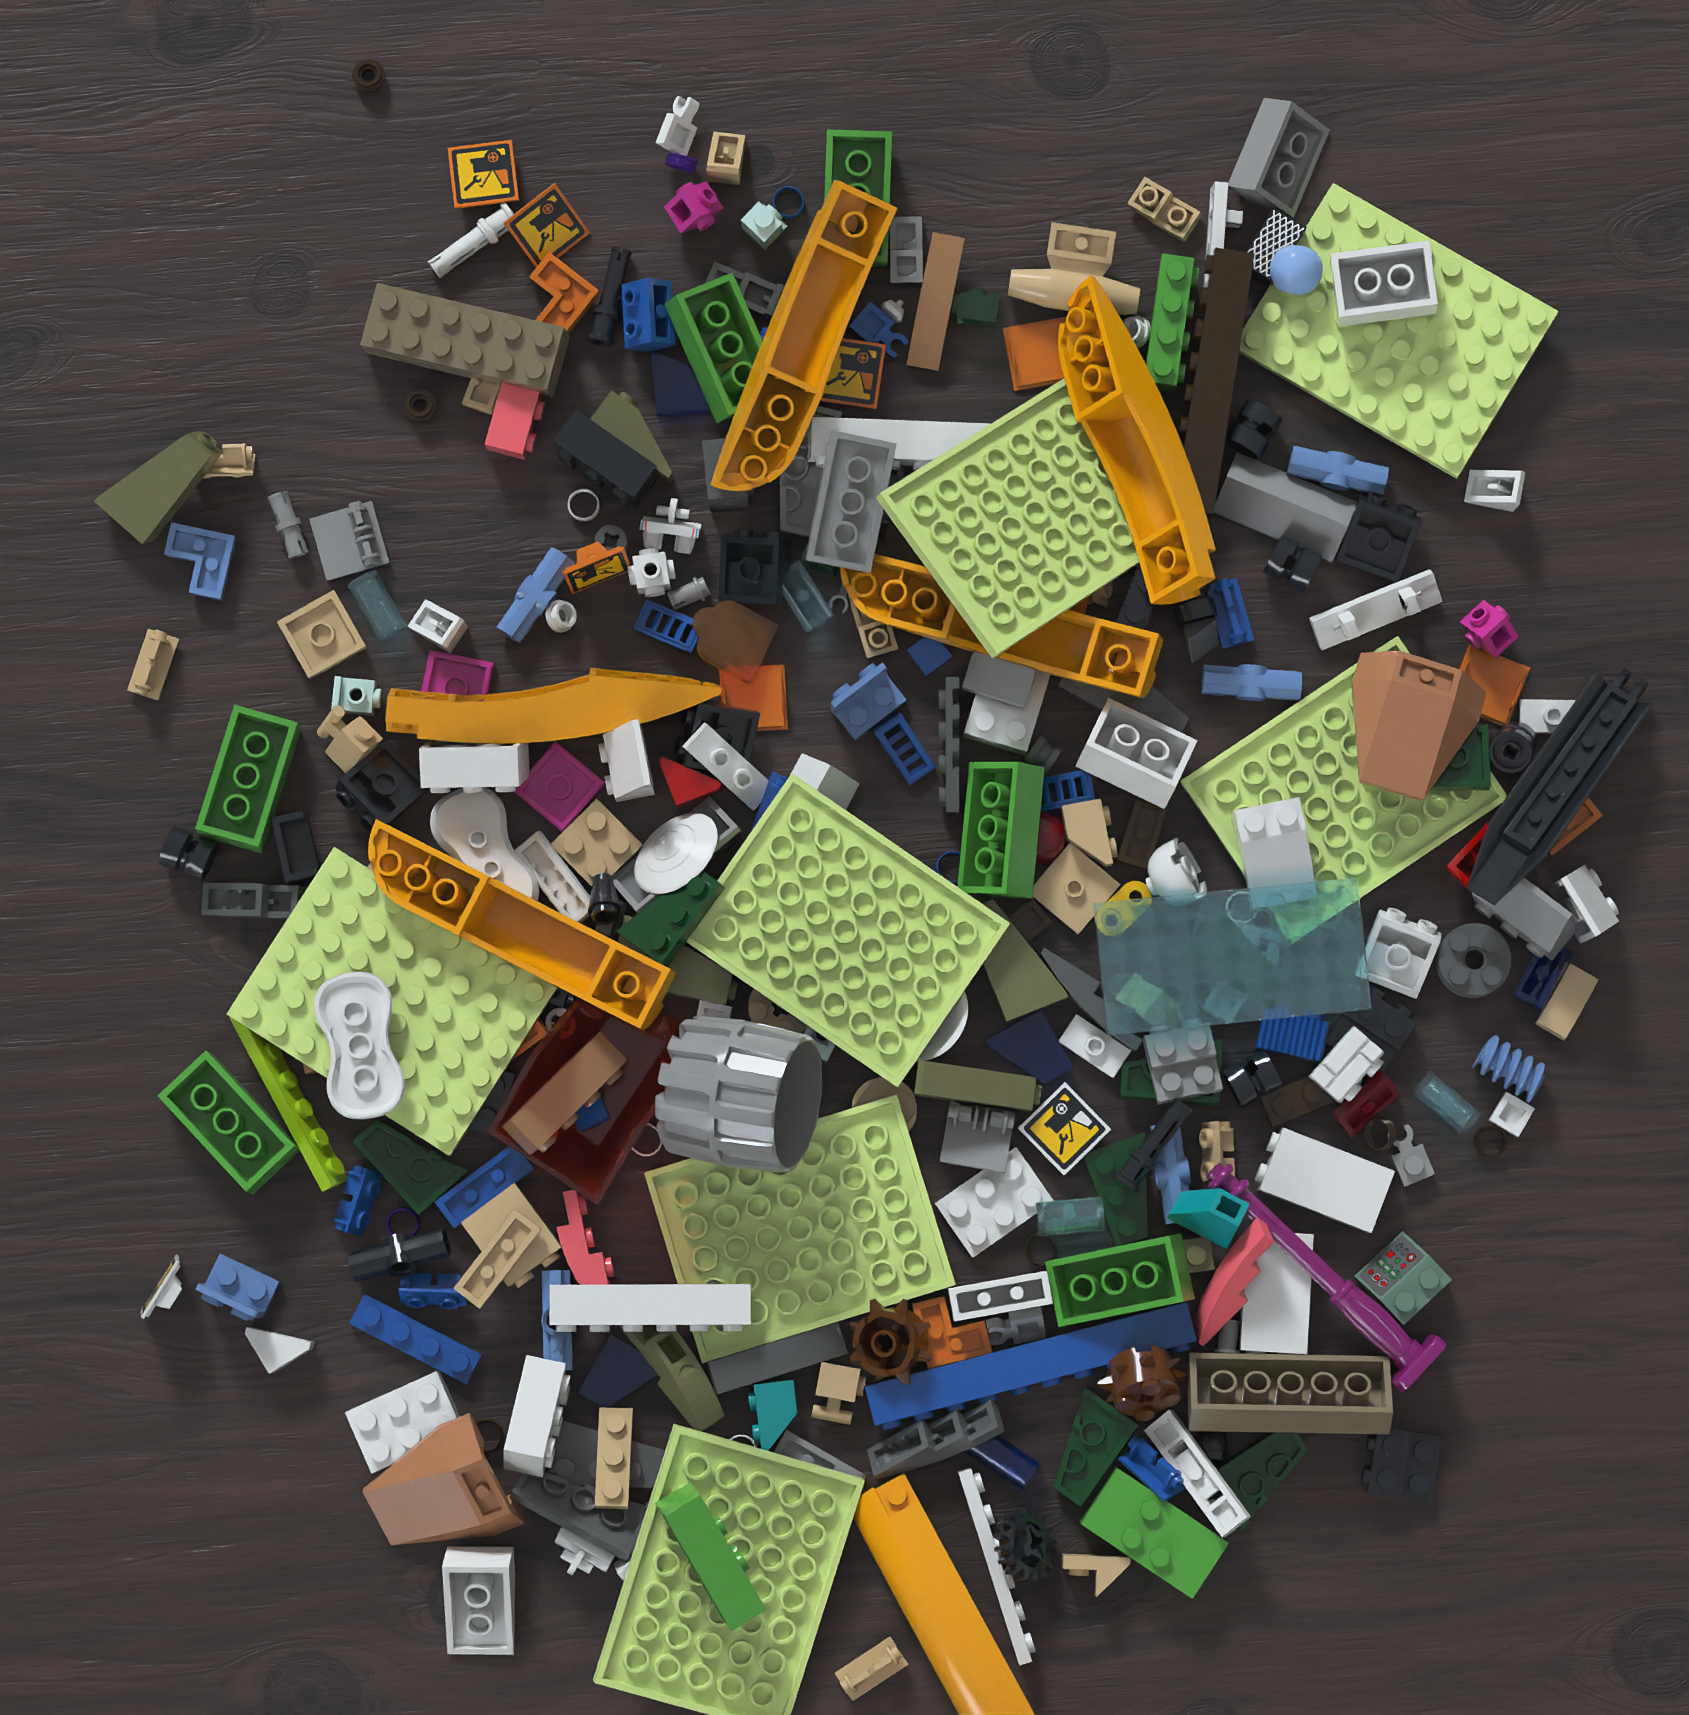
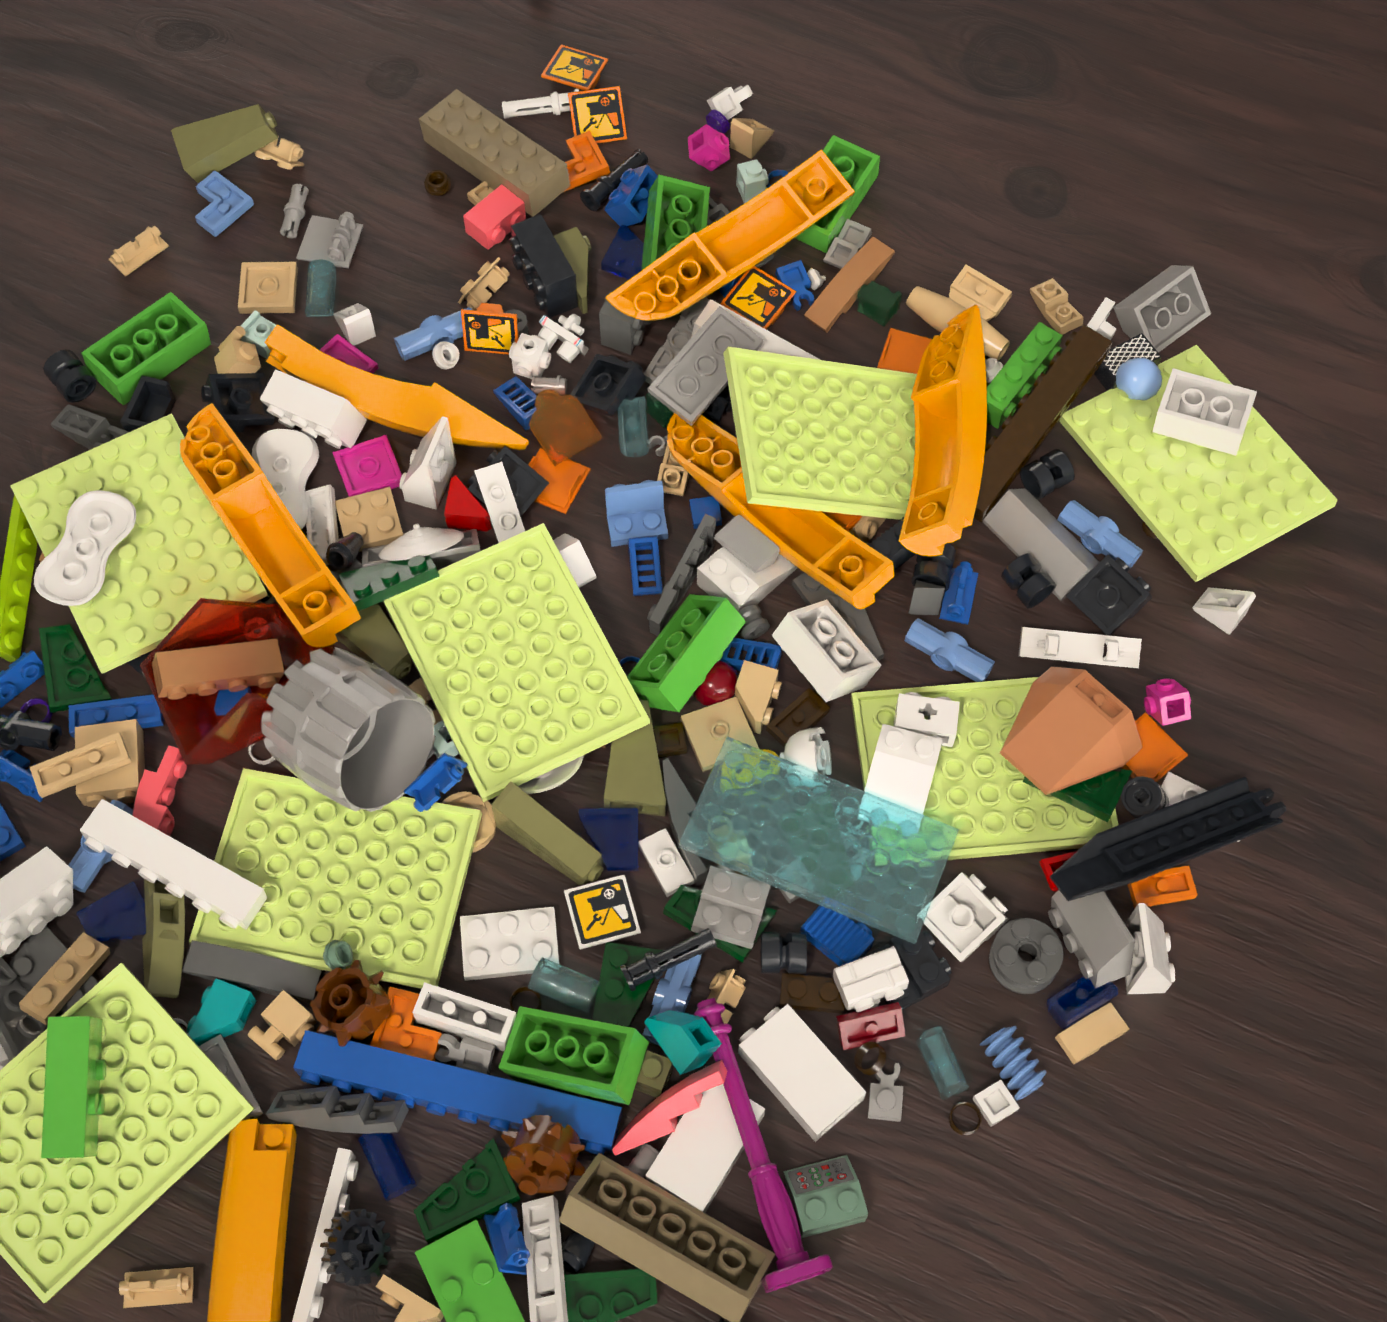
camera: 25 degrees right, 20 degrees down
(543, 519) = (491, 277): none -> tan hinge
(596, 511) = (514, 306): white axle -> none
(850, 1084) = (438, 777): none -> blue hinge
(852, 1305) = (337, 954): none -> sand green plate
(977, 1137) = (526, 879): light grey hinge -> none
(1255, 790) = (941, 715): none -> white brick

